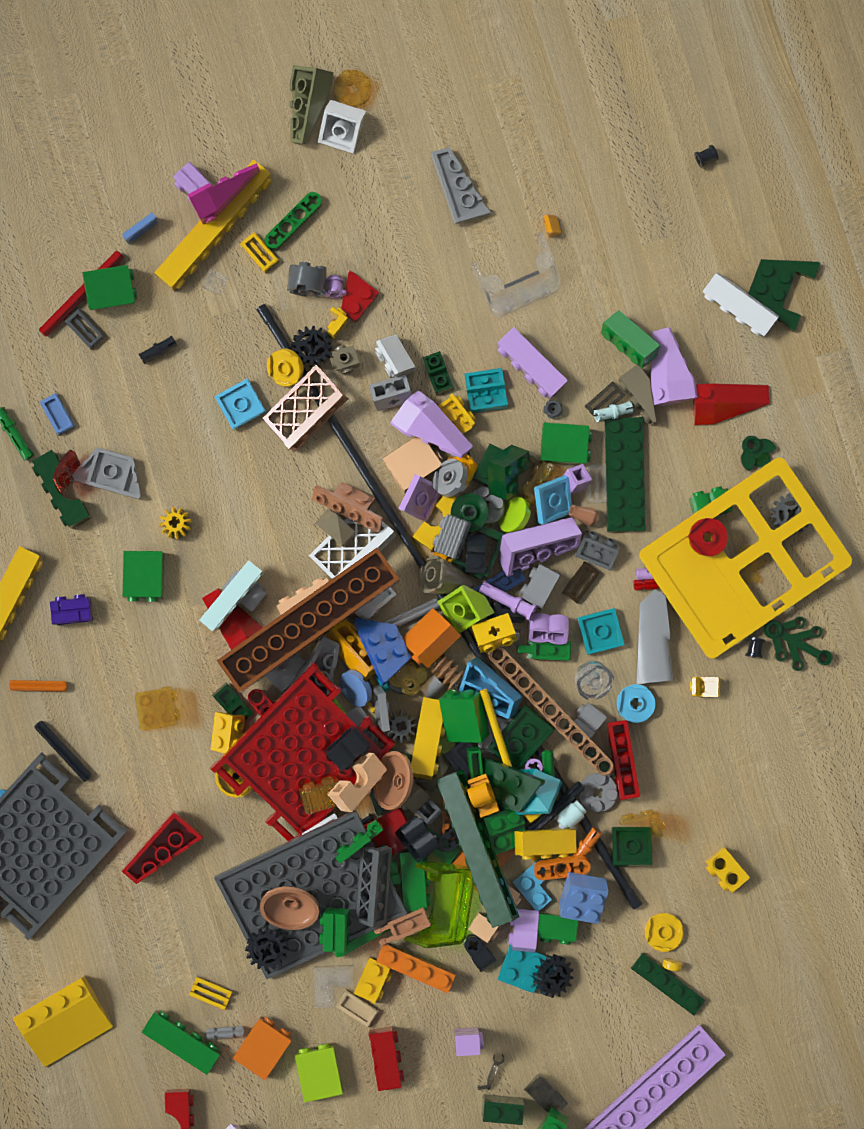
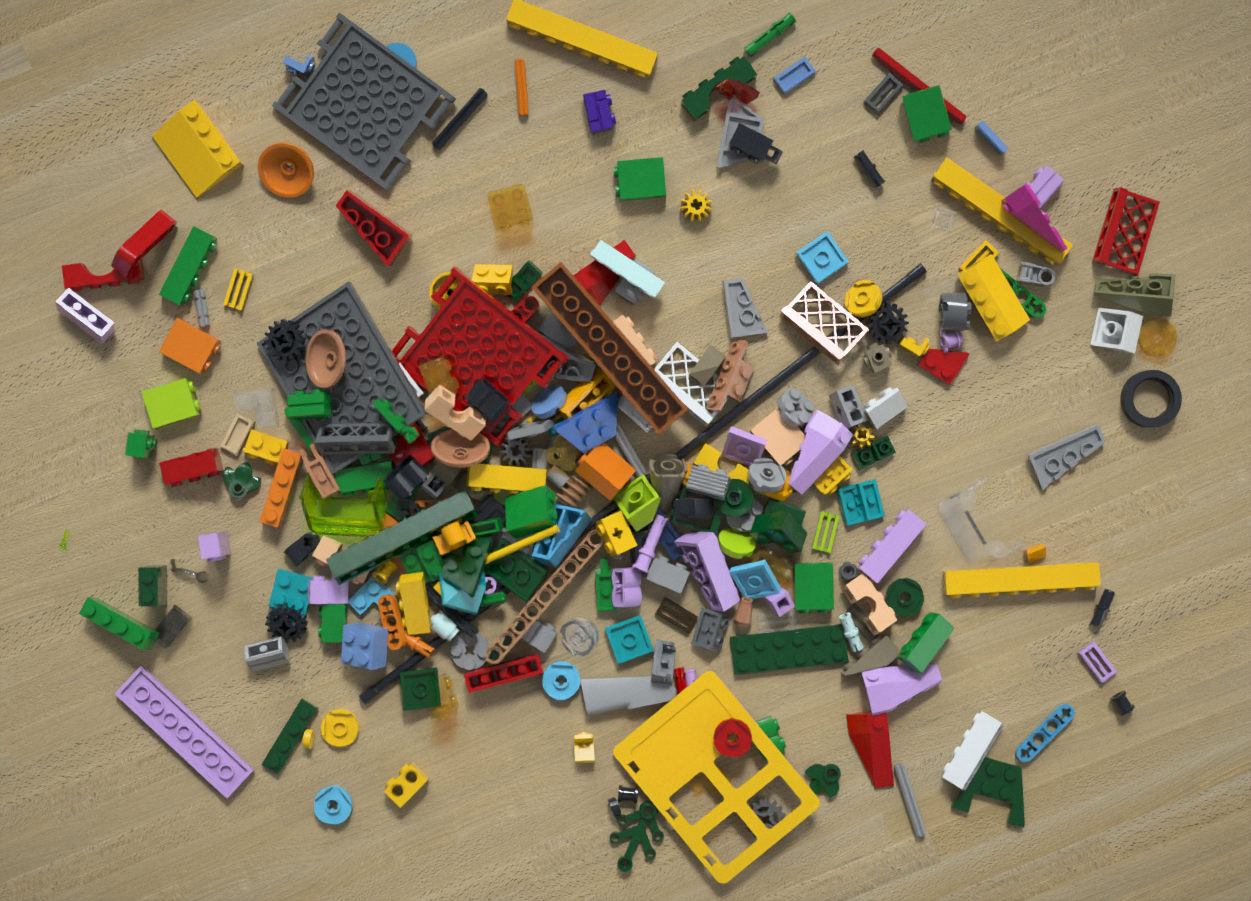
camera: 85 degrees right, 5 degrees up
(103, 937) = (281, 178): none -> orange dish
(121, 459) = (753, 145): none -> black brick
(152, 1086) = (142, 242): none -> red beam
(240, 122) = (1111, 224): none -> red fence
(277, 201) = (1034, 274): none -> light grey piece
(284, 489) = (740, 310): none -> light grey wing
(297, 240) = (993, 297): none -> yellow slope
(357, 1108) = (140, 444): none -> green brick
(378, 444) = (794, 399): none -> light grey plate
(401, 1009) = (241, 477): none -> dark green plate
(411, 703) = (539, 458): none -> light grey piece
(418, 78) = (1172, 388): none -> black tyre
(426, 382) = (863, 431): none -> yellow gear
(511, 871) = (384, 572): none -> yellow bush
(514, 420) = (833, 532): none -> lime tile
(573, 360) = (915, 594): none -> dark green plate
(576, 241) = (1021, 578): none -> yellow brick
(583, 999) = (266, 654): none -> light grey brick
(599, 381) = (880, 615): none -> light nougat arch
(611, 166) = (1102, 607): none -> black axle
(626, 599) = (663, 662): none -> hinge
(651, 184) = (1106, 675): none -> lavender tile
(726, 235) = (1047, 735): none -> dark azure beam
(743, 935) = (331, 815): none -> medium azure plate
(766, 662) = (614, 806): none -> black tile
(784, 370) = (910, 799): none -> light grey axle

